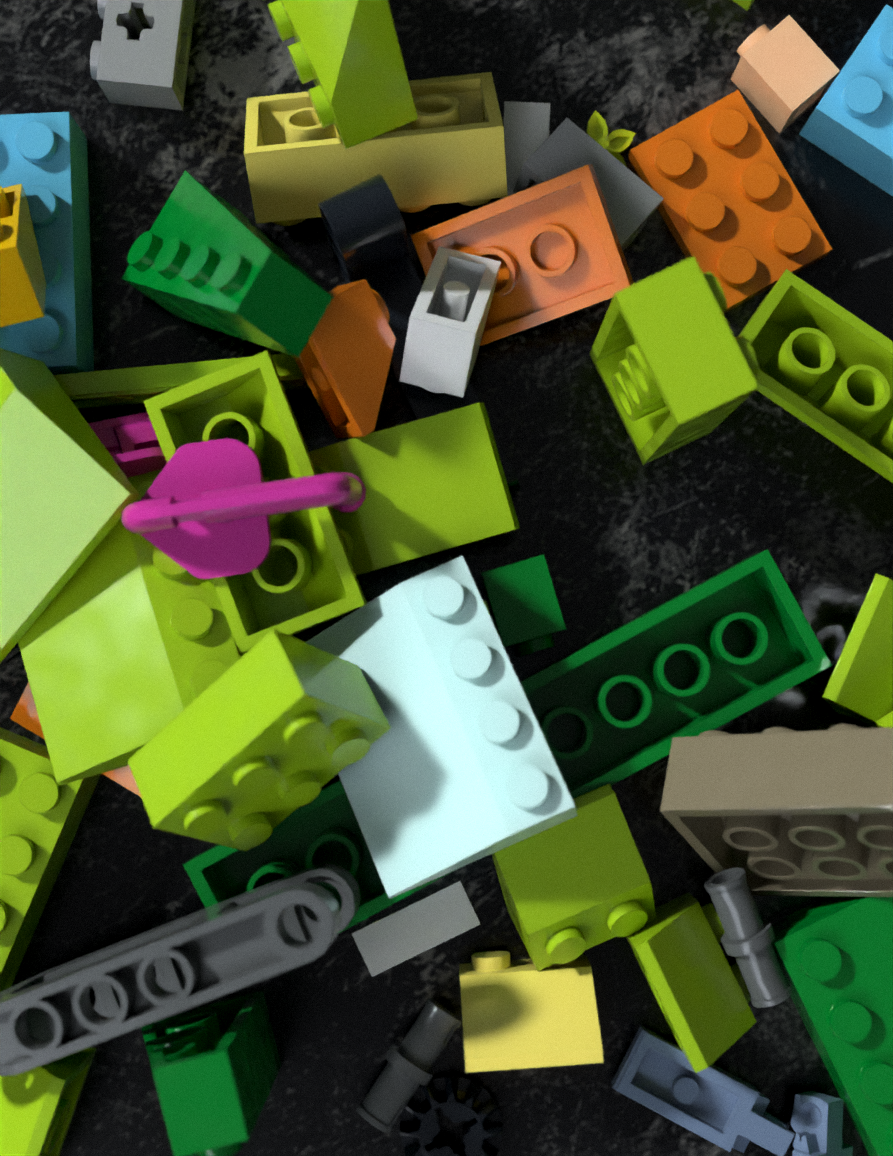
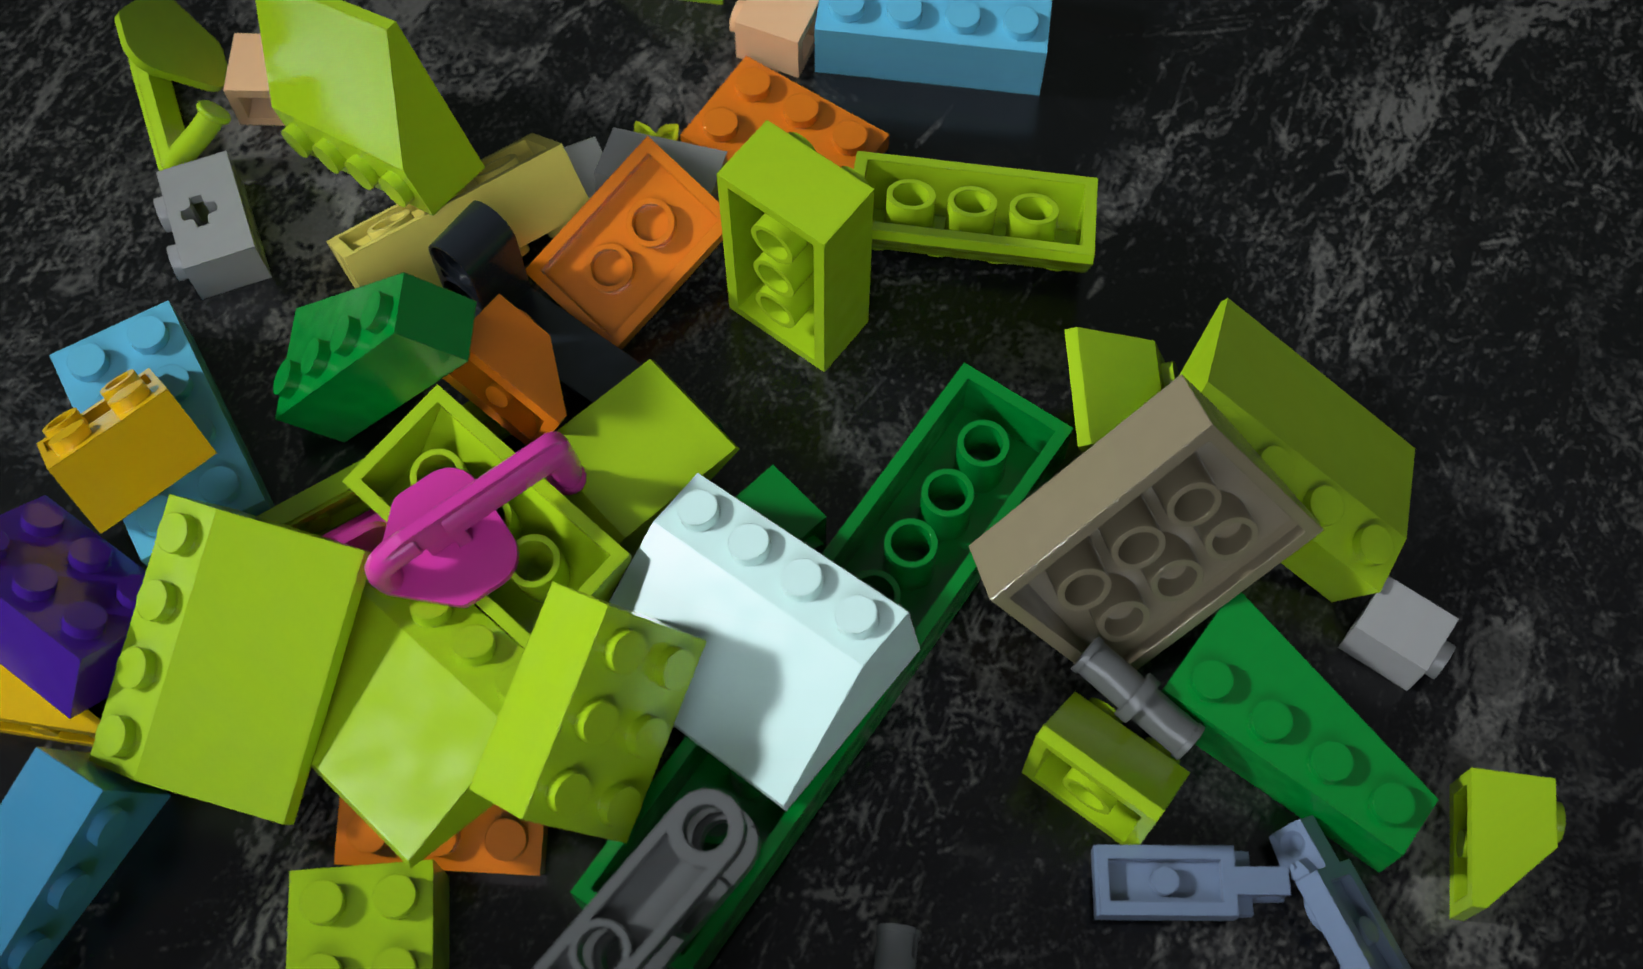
camera: 30 degrees left, 20 degrees down
(416, 928) = (830, 873): white sticker -> none
(449, 322) = (591, 313): white slope -> none
(528, 1015) = (975, 874): light yellow slope -> none
(576, 882) = (950, 727): lime slope -> none

